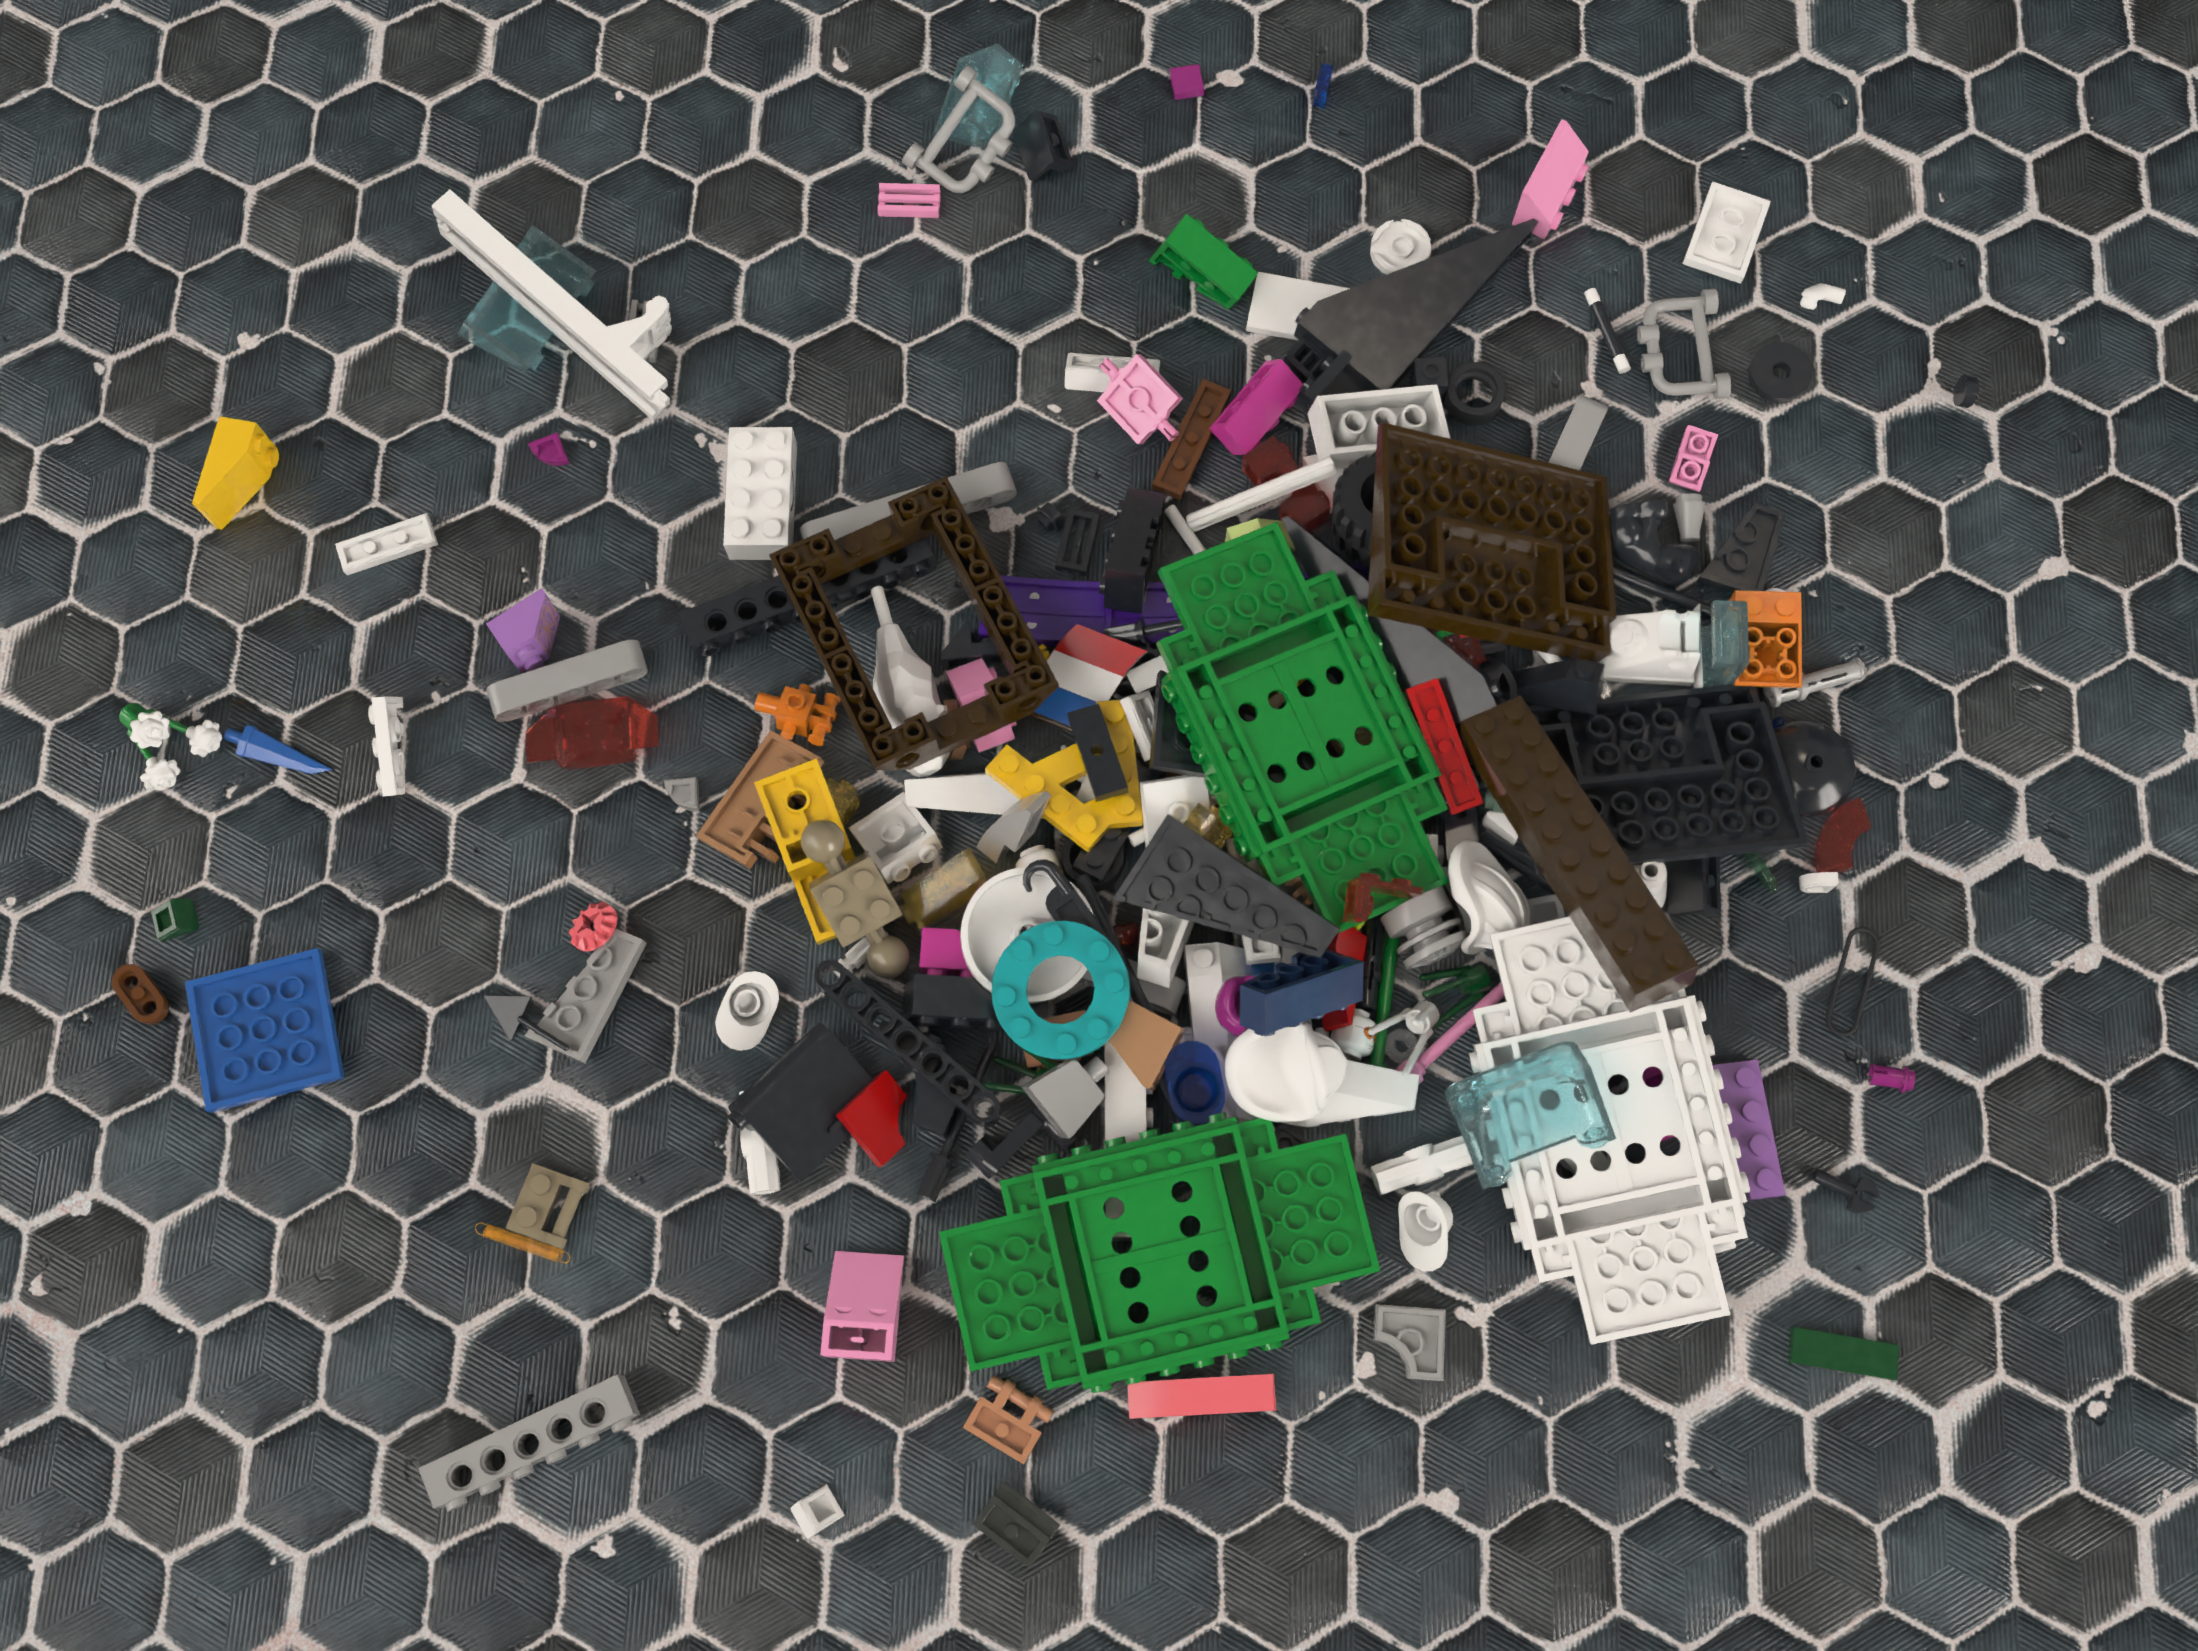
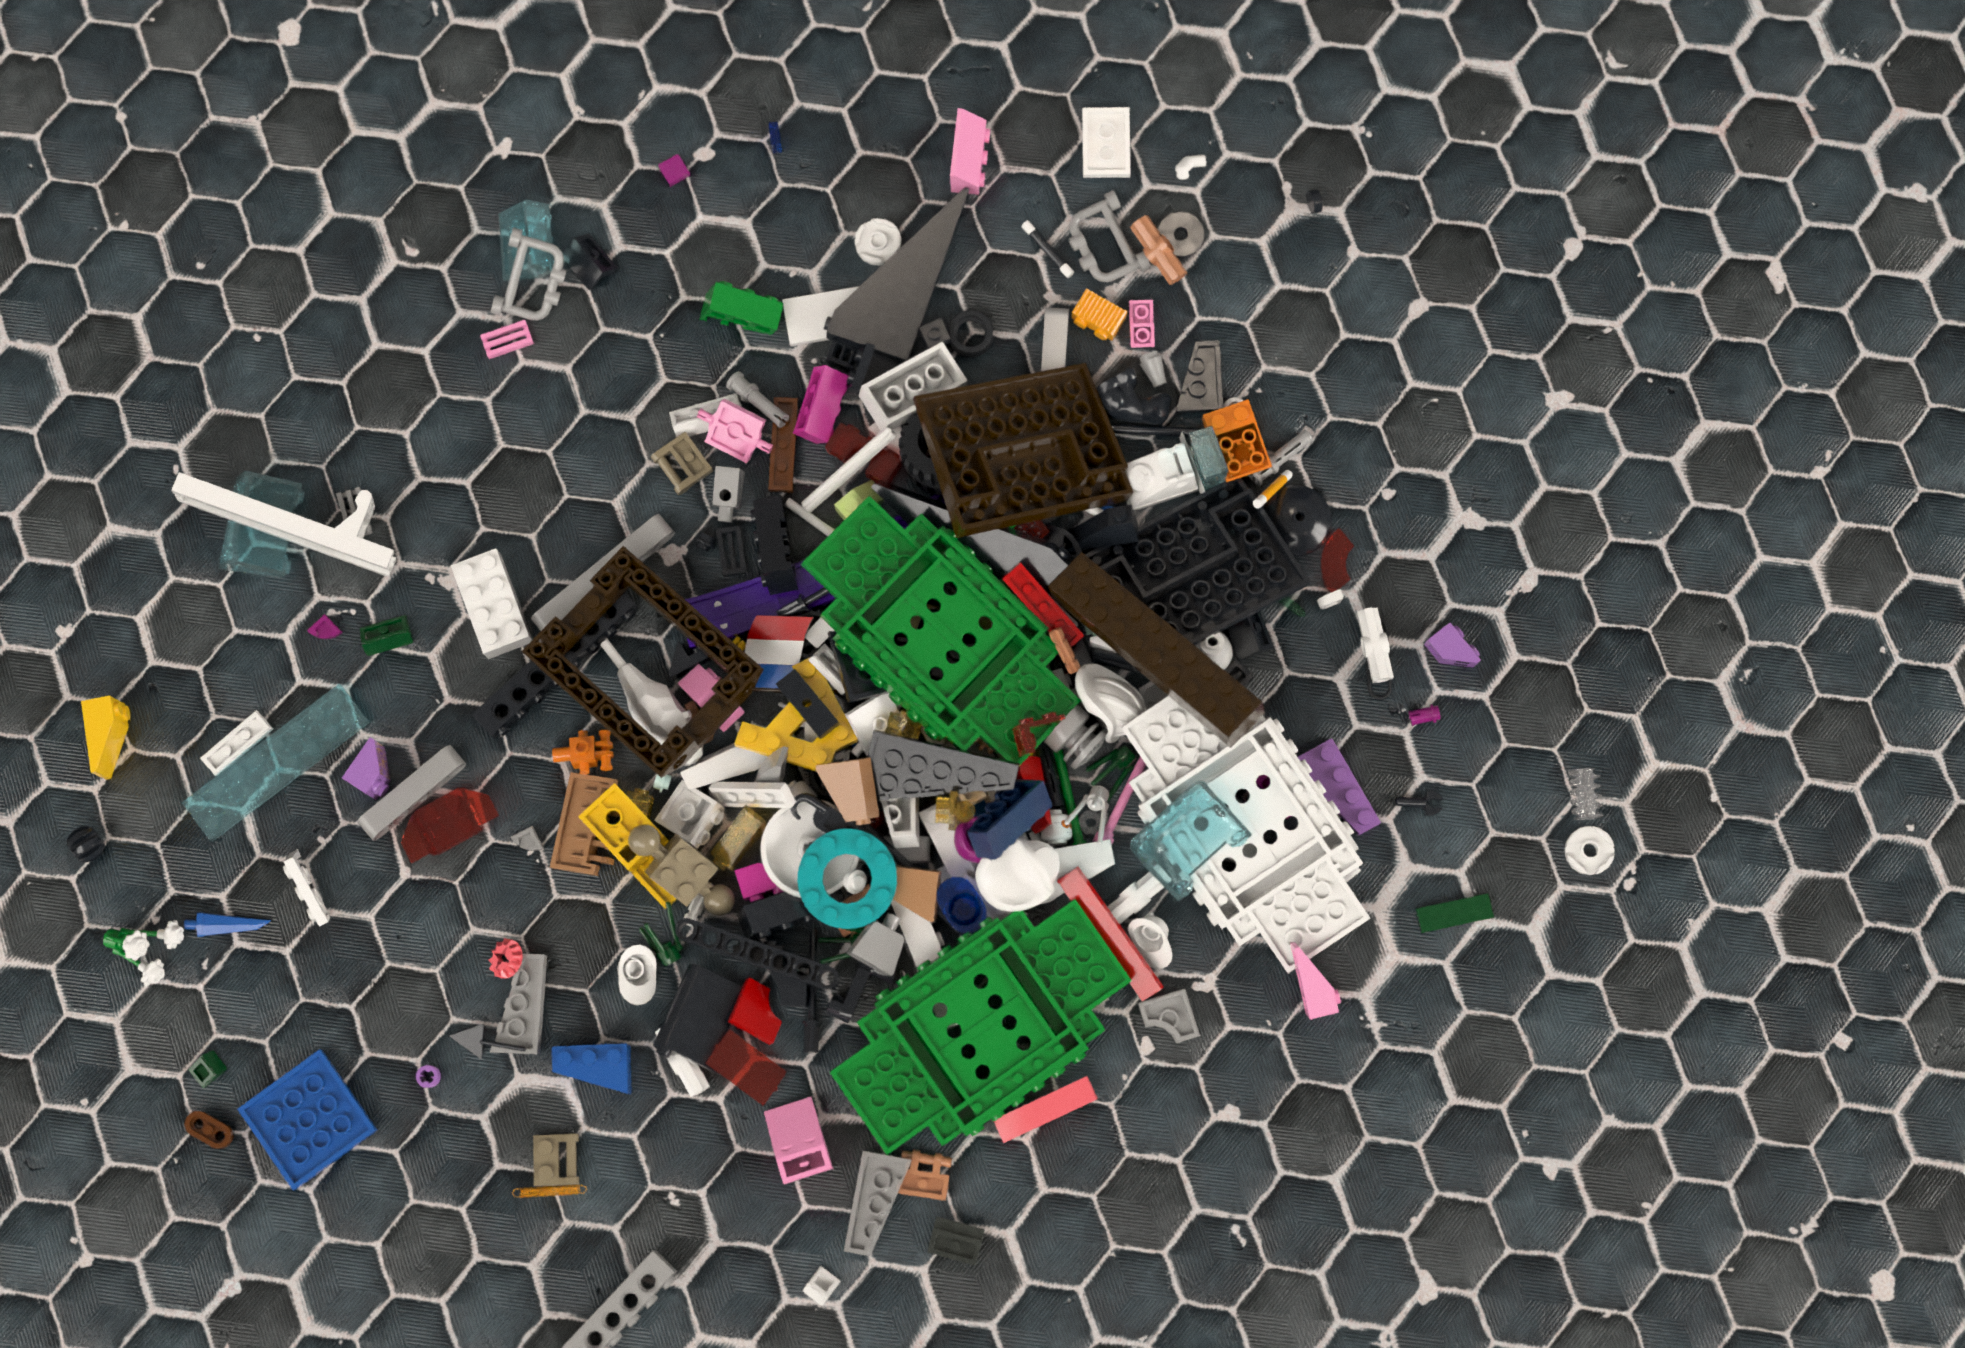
camera: 20 degrees left, 5 degrees up
(153, 591) = (85, 844): none -> black piece
(421, 583) = (275, 762): none -> clear light blue plate
(445, 1041) = (427, 1084): none -> medium lavender bush
(618, 485) = (386, 635): none -> dark green slope
(648, 1103) = (598, 1064): none -> blue wedge
(796, 997) = (666, 952): none -> dark green plant
(835, 1183) = (746, 1067): none -> clear red piece
(879, 784) = (662, 783): none -> light aqua plate
(934, 1418) = (874, 1195): none -> light grey wing
(984, 840) = (752, 794): none -> white plate
(1069, 414) = (687, 457): none -> dark tan plate
(1069, 998) = (854, 881): none -> white plate
(1105, 454) = (726, 481): none -> light grey torso
(1111, 876) = (851, 788): none -> slope
(1175, 364) = (750, 393): none -> light grey pin
(1225, 955) = (950, 811): none -> clear yellow hips
(1395, 1274) = (1079, 888): none -> tile
(1451, 811) = (1064, 650): none -> nougat axle
(1621, 1384) = (1316, 992): none -> bright pink slope
(1643, 428) = (1098, 315): none -> light orange brick
(1748, 377) = (1158, 250): none -> nougat piece
(1792, 714) = (1272, 489): none -> bar
(1857, 962) = (1375, 645): none -> white piece
(1958, 1004) = (1451, 648): none -> medium lavender slope
(2037, 1348) = (1576, 857): none -> white tile
(2077, 1263) = (1585, 794): none -> clear piece

